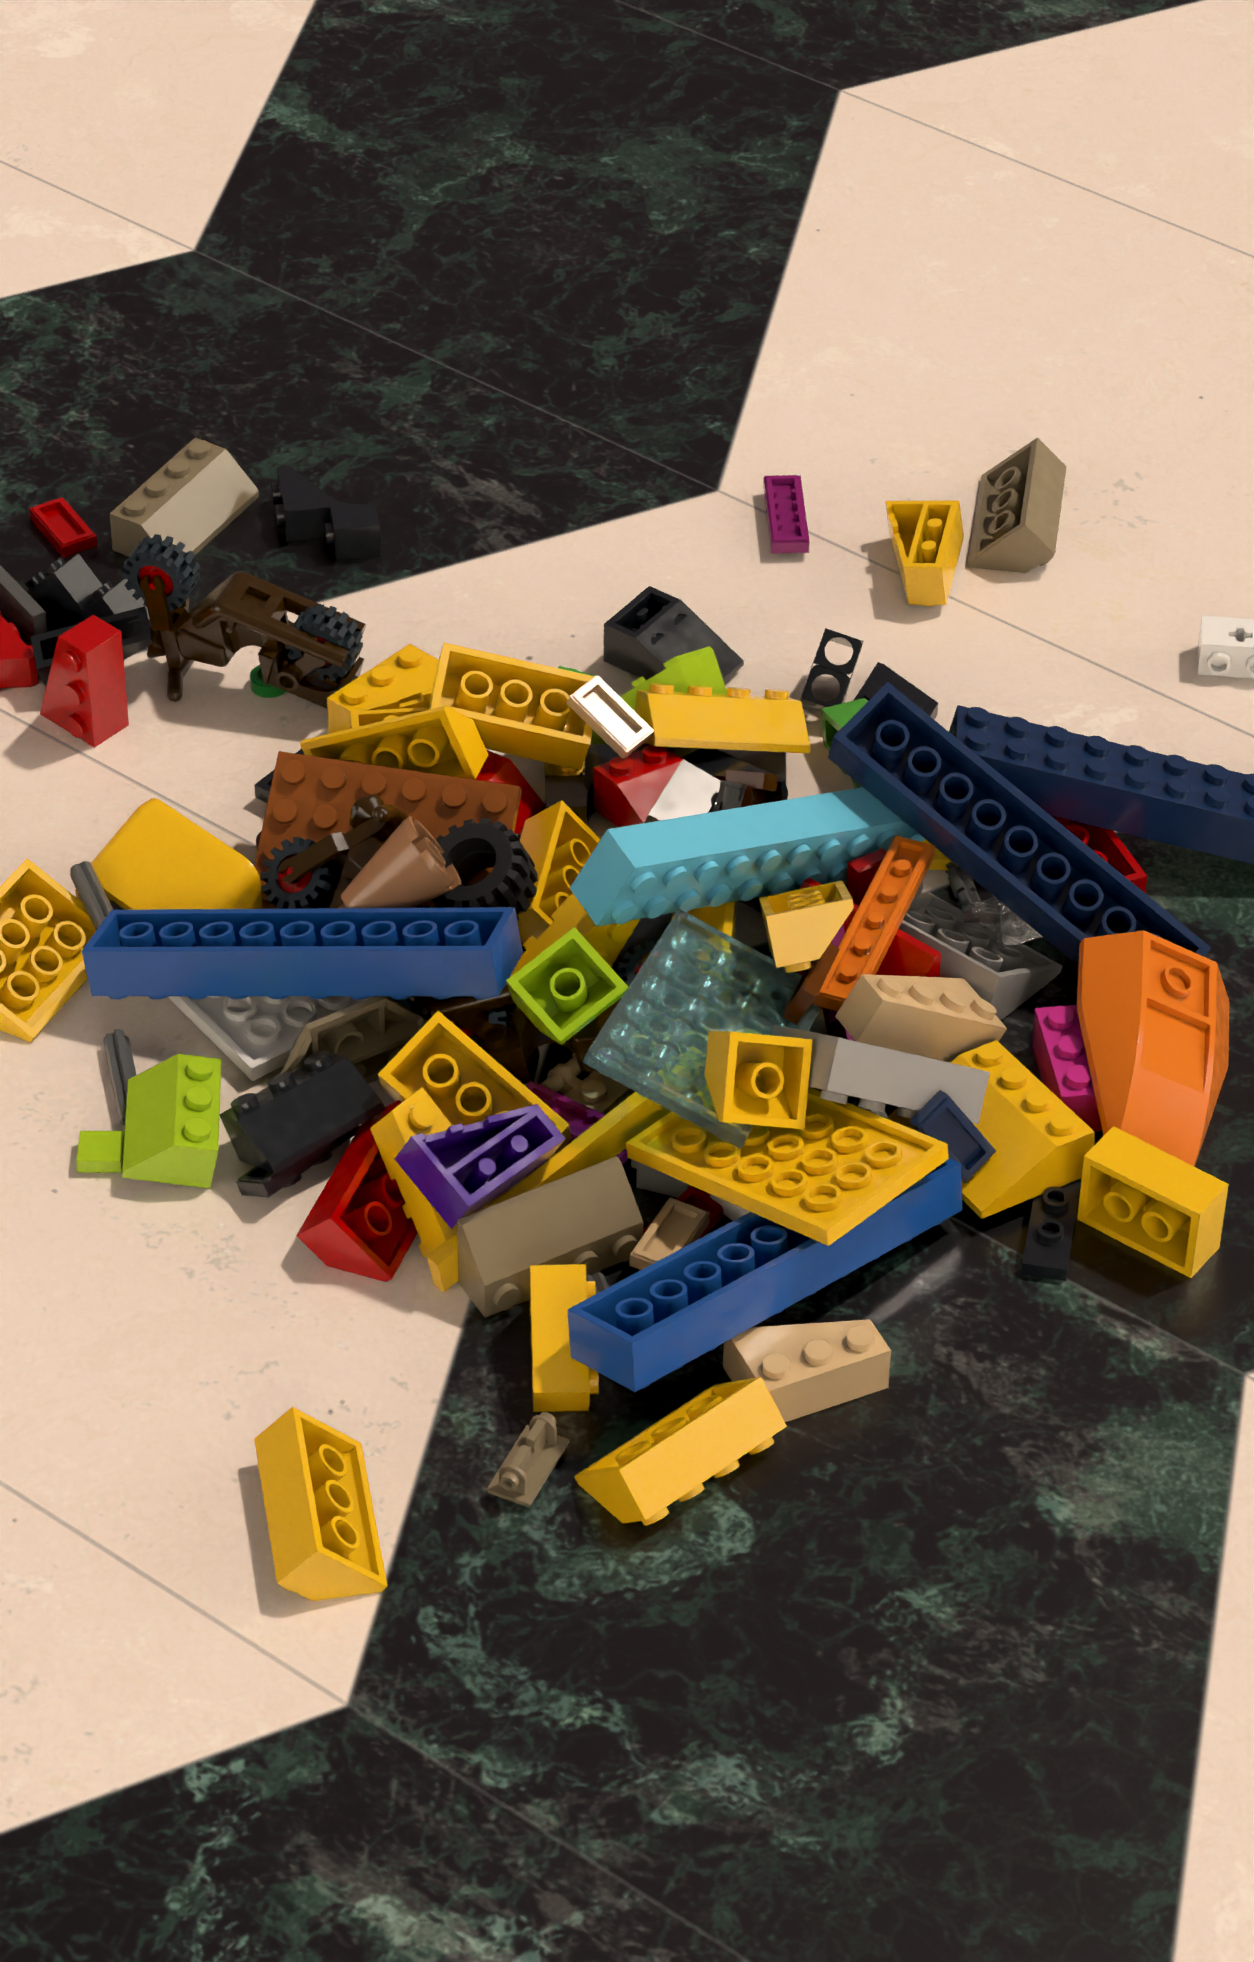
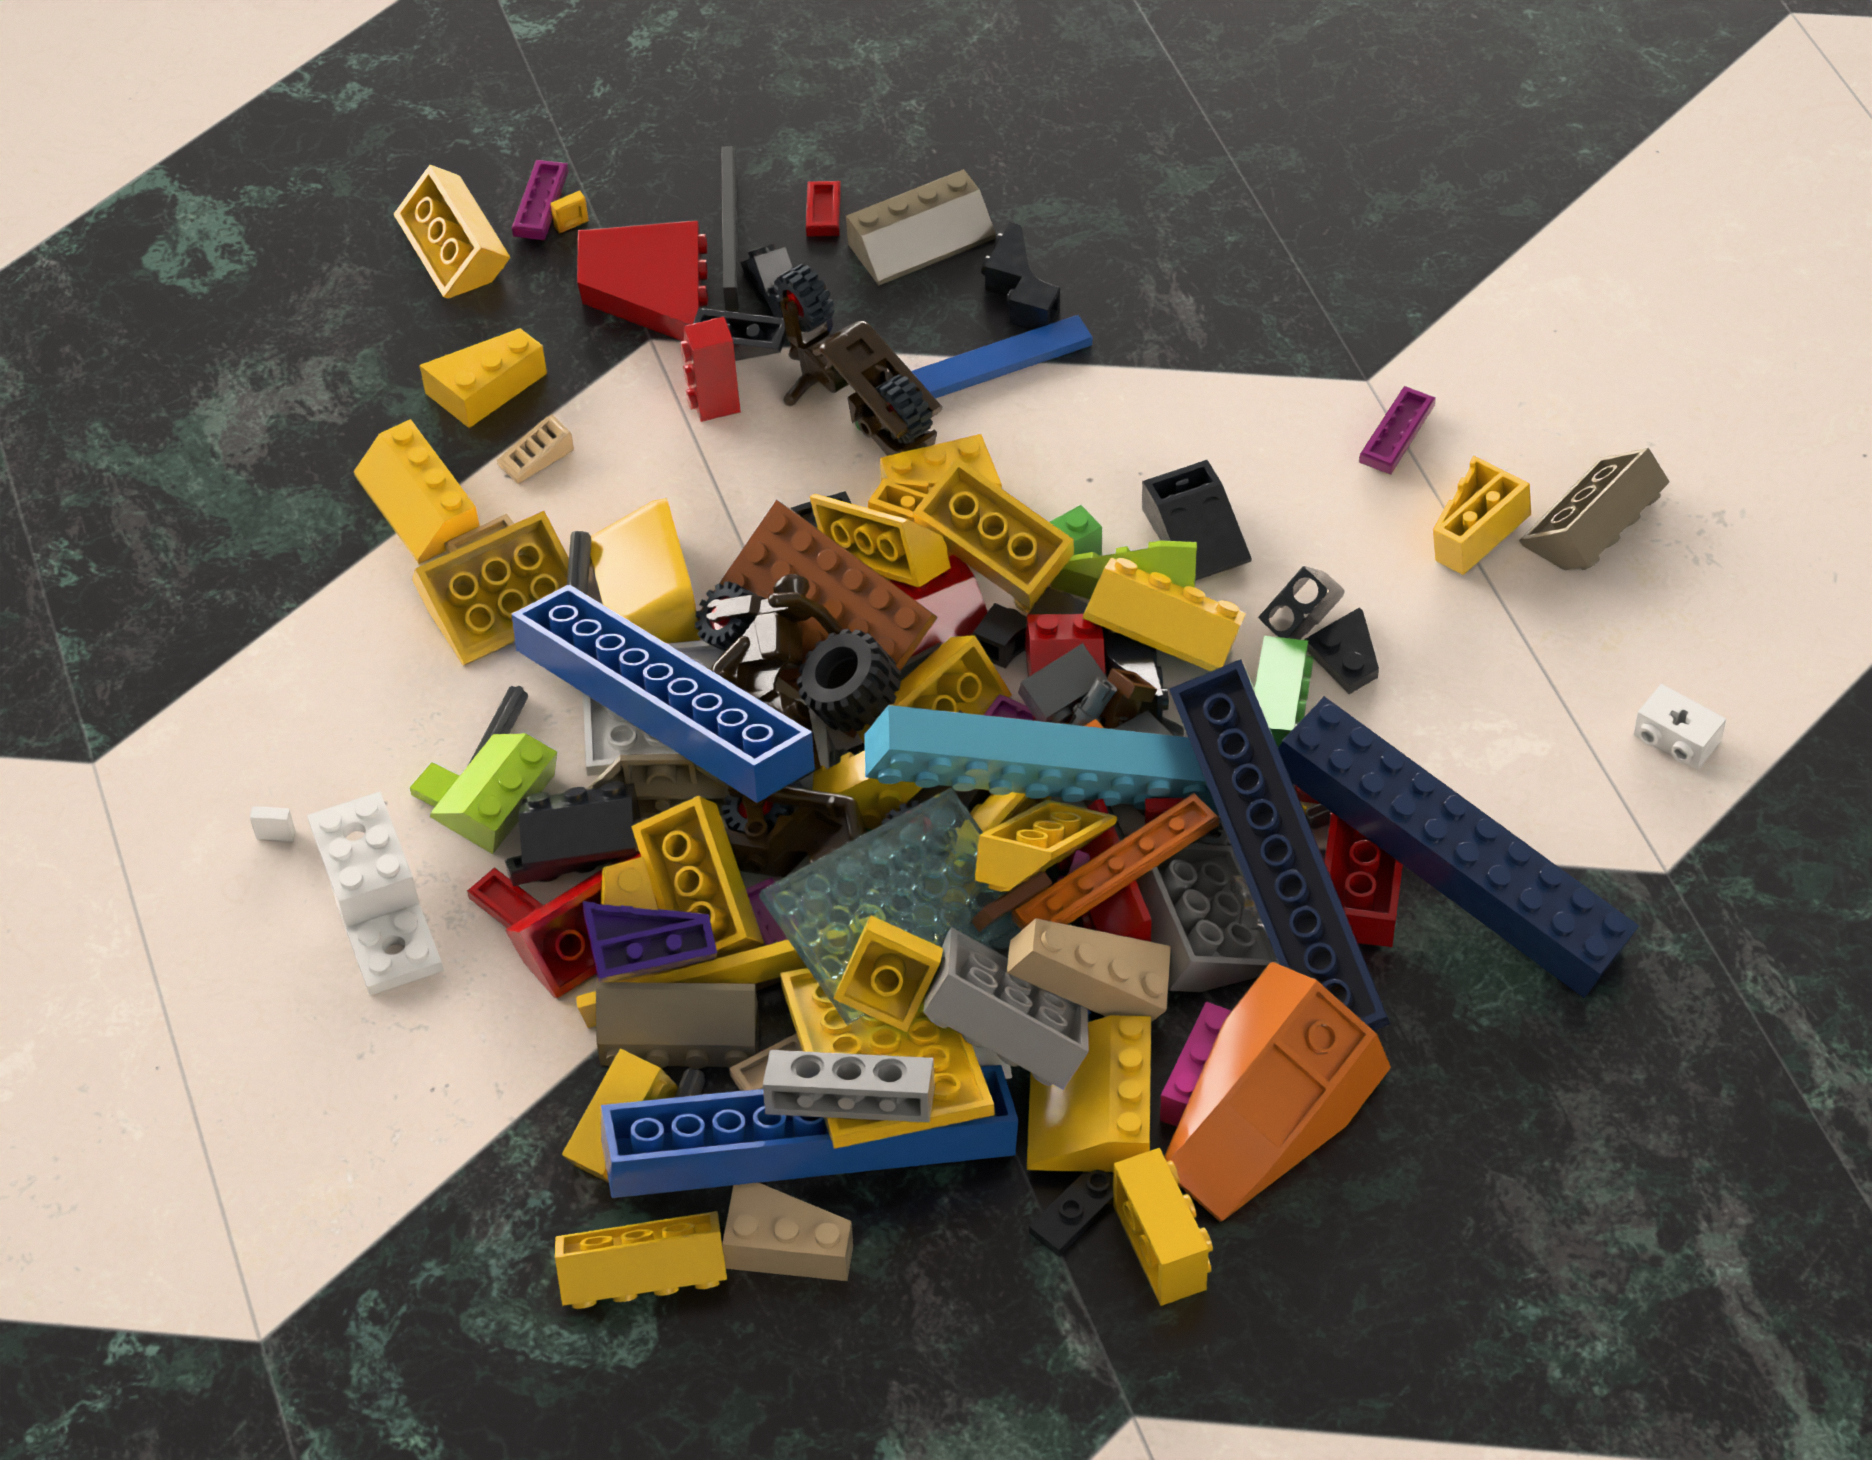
camera: 35 degrees right, 10 degrees up
(130, 1259) = (375, 893): none -> white bracket
(263, 1219) = (501, 900): none -> red tile
(318, 1509) = (351, 1172): yellow slope -> none
(375, 572) = (1004, 356): none -> blue tile
(402, 872) = (770, 657): medium nougat cone -> none
(529, 1461) = (528, 1209): dark tan hinge -> none
(565, 987) = (811, 818): lime slope -> none
(610, 717) = (1058, 577): tile -> none
(807, 1180) = (849, 1086): none -> light grey brick
(949, 1124) = (1032, 1091): dark blue tile -> none

